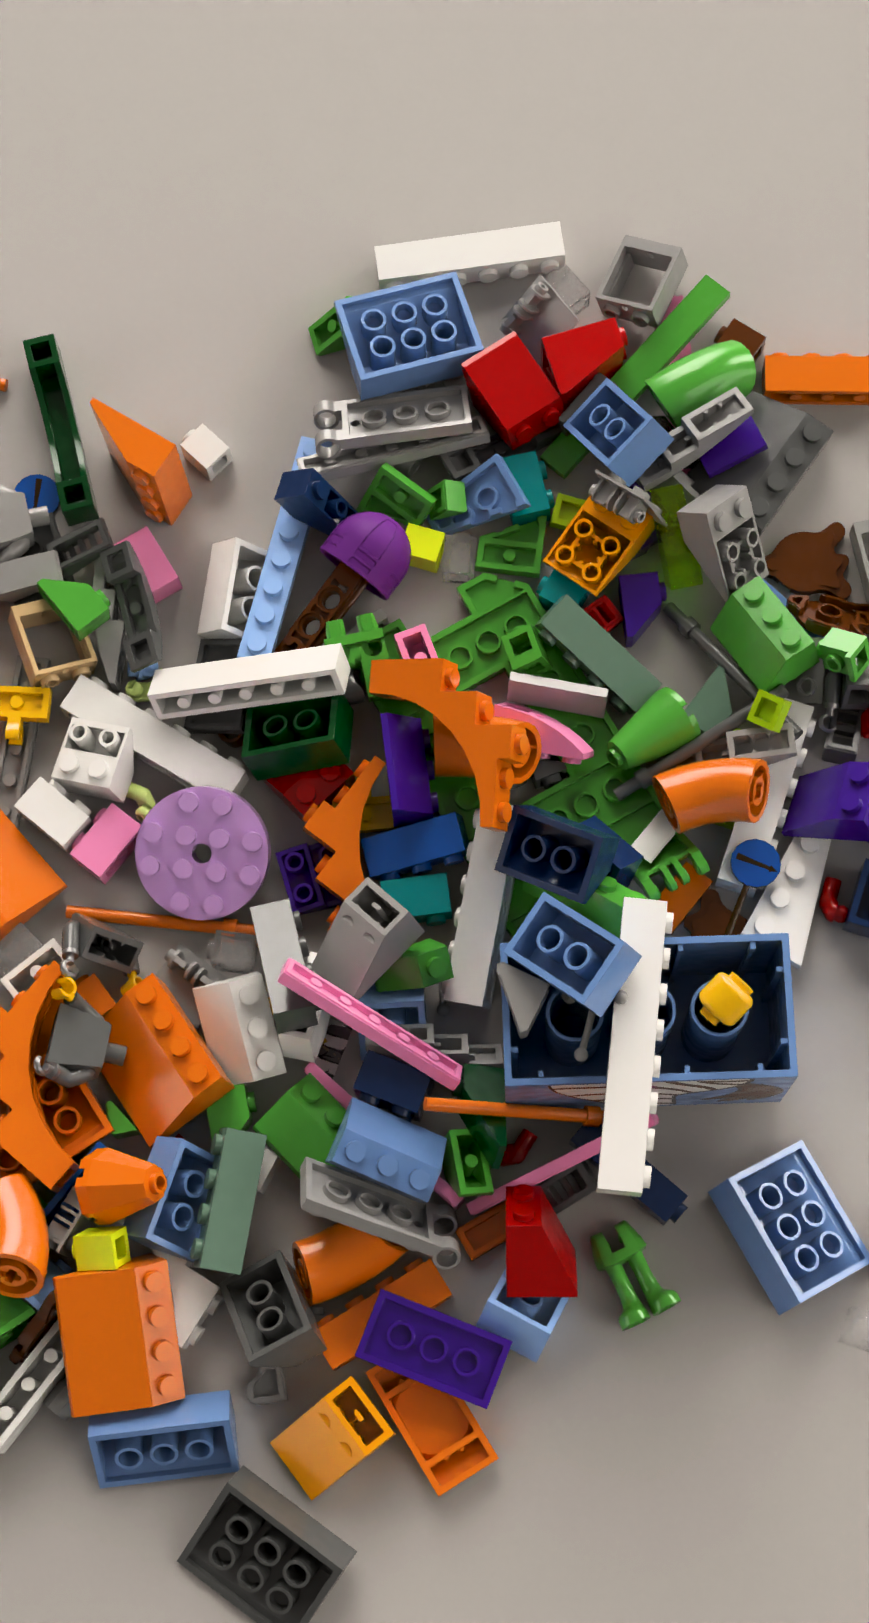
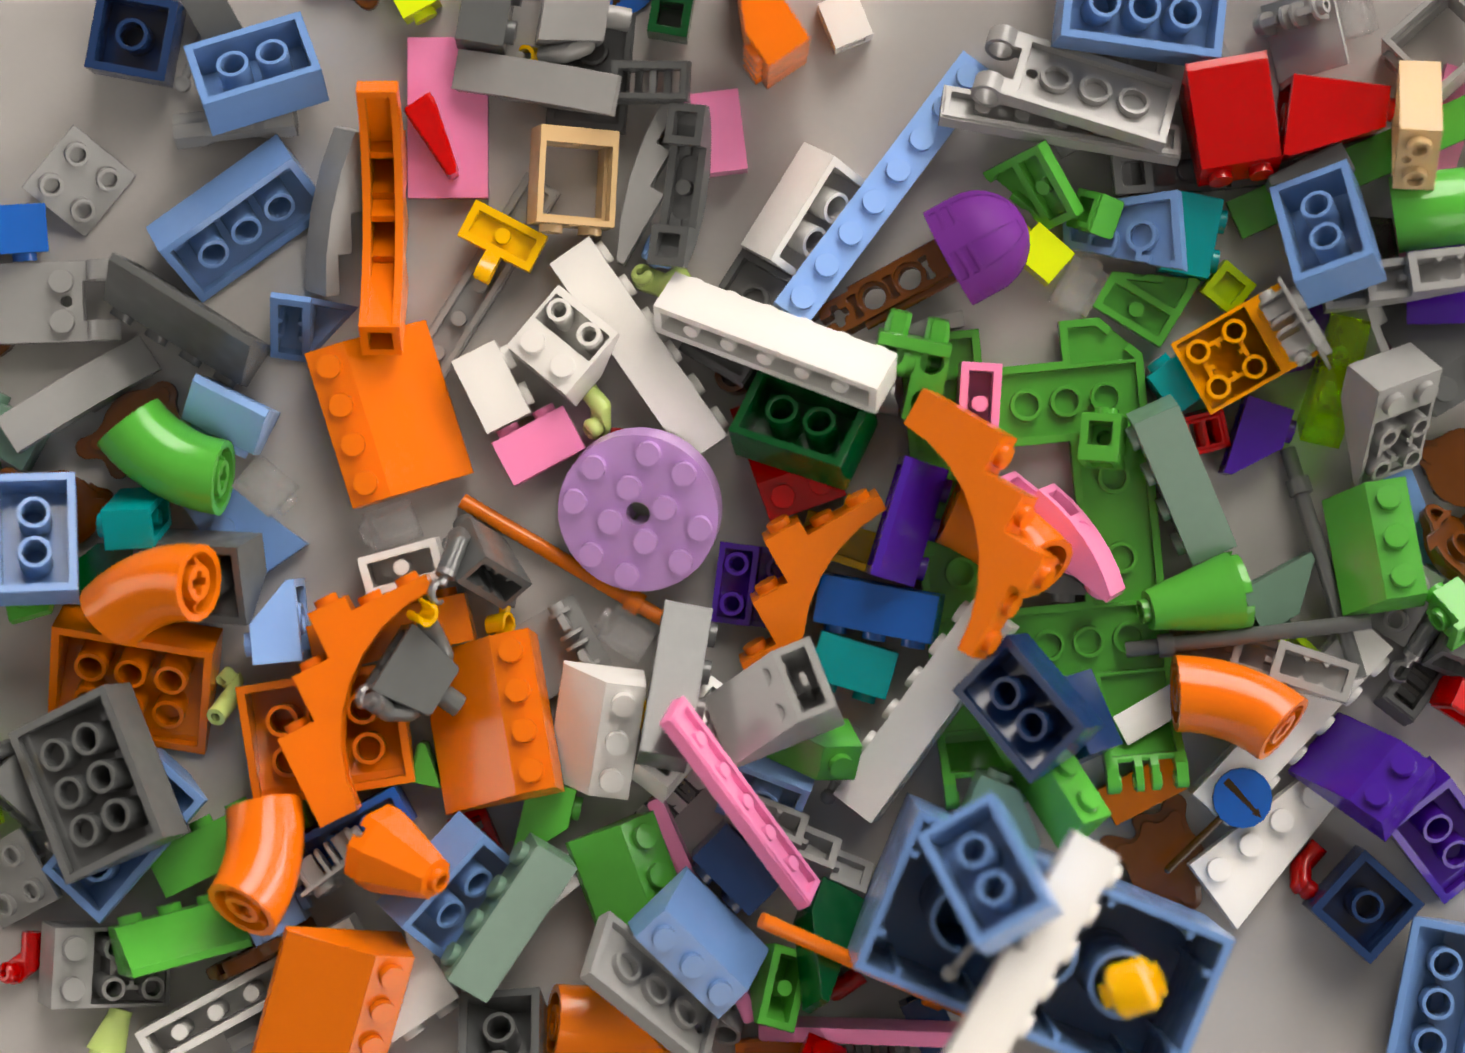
camera: 20 degrees right, 15 degrees up
(76, 605) = (617, 157): bright green slope -> none
(101, 1248) = (349, 914): neon yellow brick -> none
(312, 500) = (943, 152): dark blue slope -> none
(524, 996) = (917, 887): light grey slope -> none
(557, 694) = (1114, 506): tile -> none
(645, 333) = (1416, 125): none -> tan window
(769, 711) = (1339, 643): lime plate -> none

